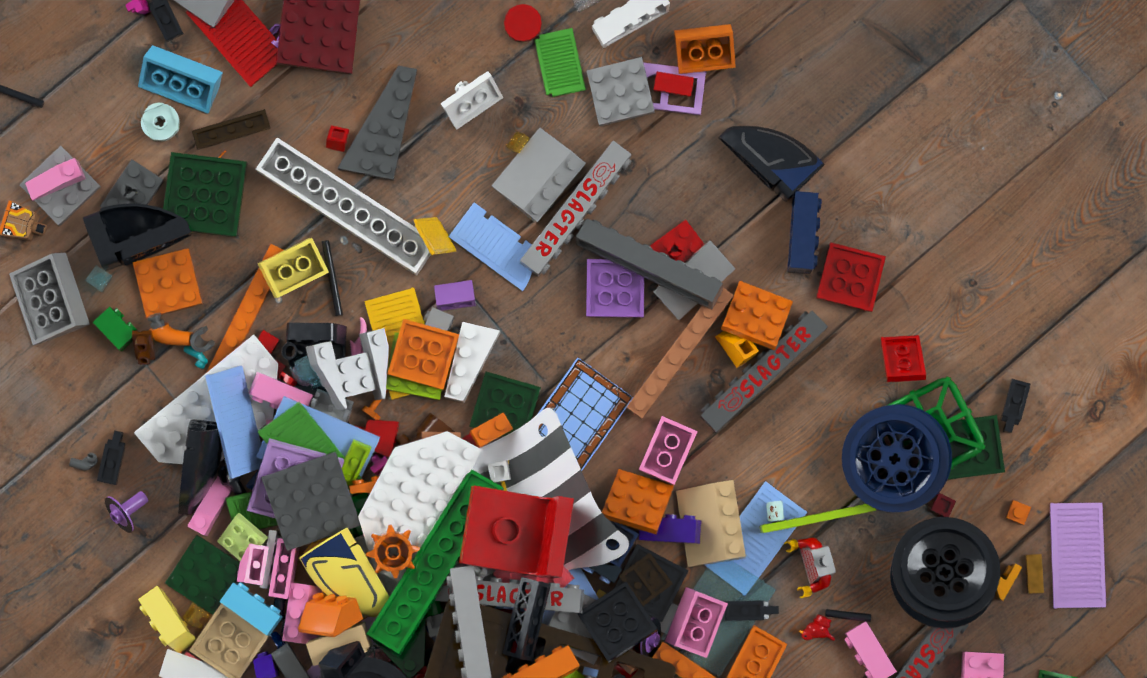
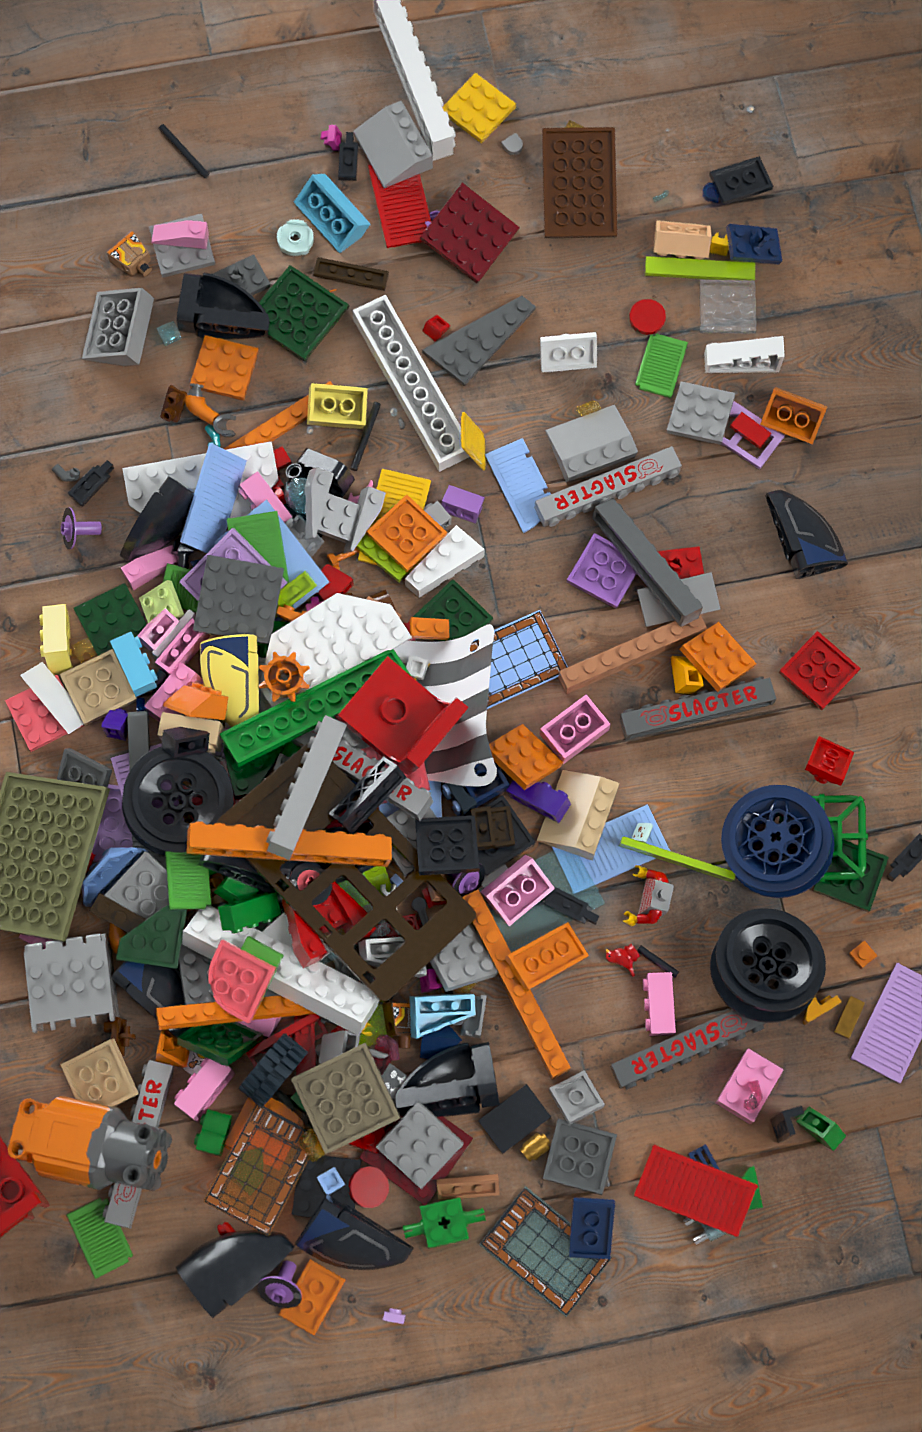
camera: 25 degrees right, 10 degrees down
(115, 328) = (158, 379): green brick -> none
(803, 232) = (798, 608): dark blue brick -> none
(943, 505) = (798, 909): dark red tile -> none

